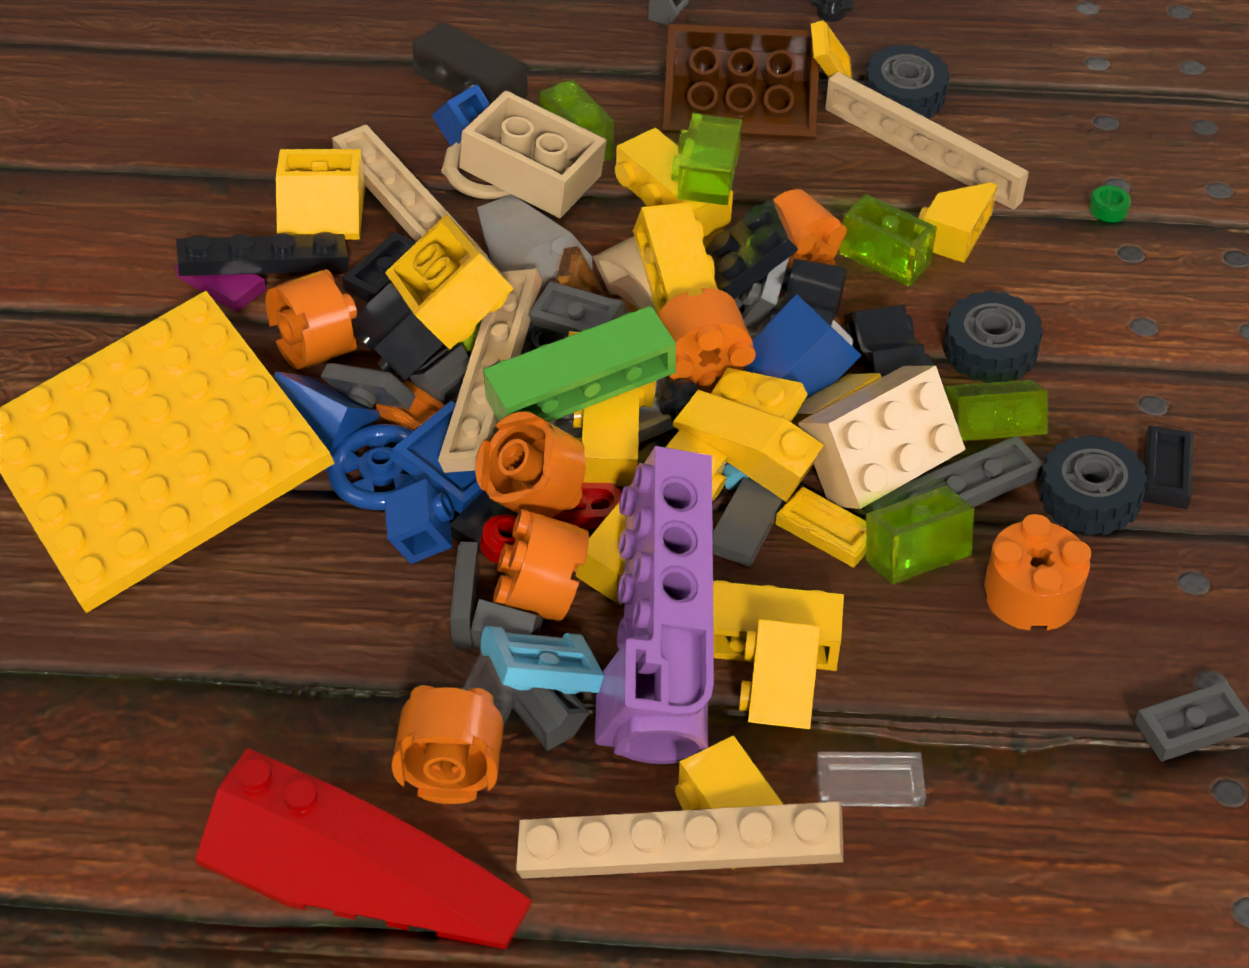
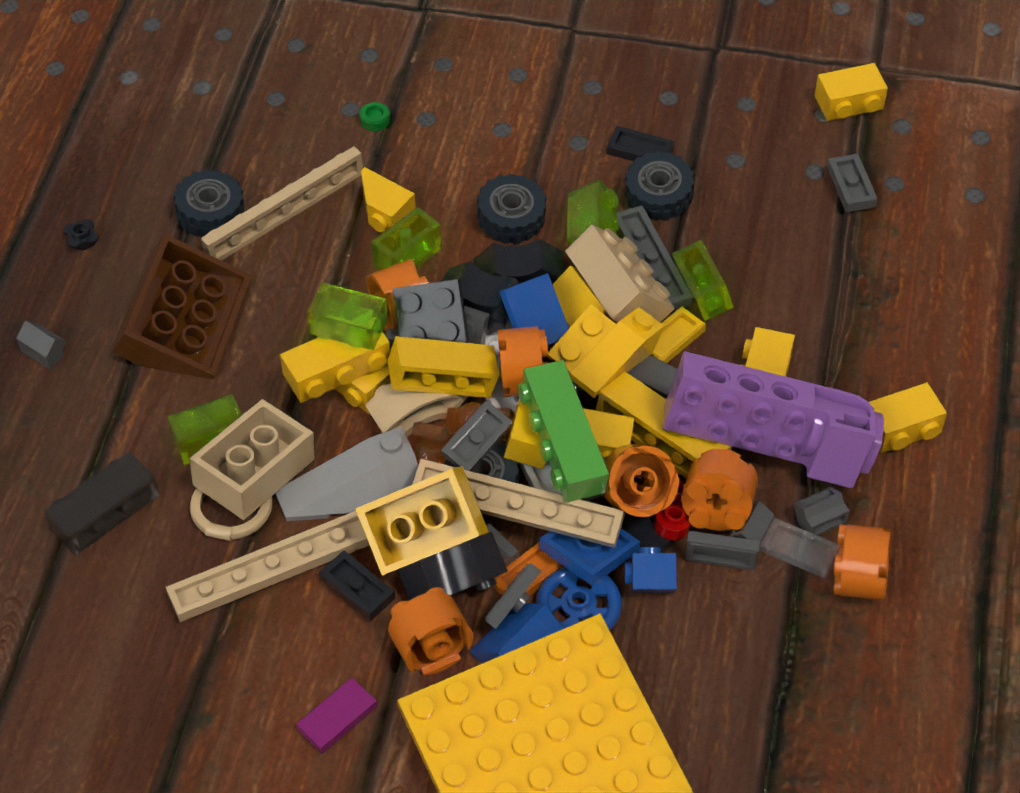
camera: 80 degrees left, 5 degrees up
(261, 254) = (324, 677): black plate -> none
(320, 192) = (261, 625): yellow slope -> none
(341, 854) = (936, 642): red wedge -> none
(459, 113) = (182, 507): blue brick -> none
(542, 661) = (809, 498): medium azure plate -> none
(681, 840) = (944, 444): tan plate -> none
(782, 673) = (819, 363): yellow brick -> none
(829, 51) = (185, 233): yellow tile -> none
(871, 778) = (883, 349): clear tile -> none
(1036, 574) = (738, 229): orange brick -> none

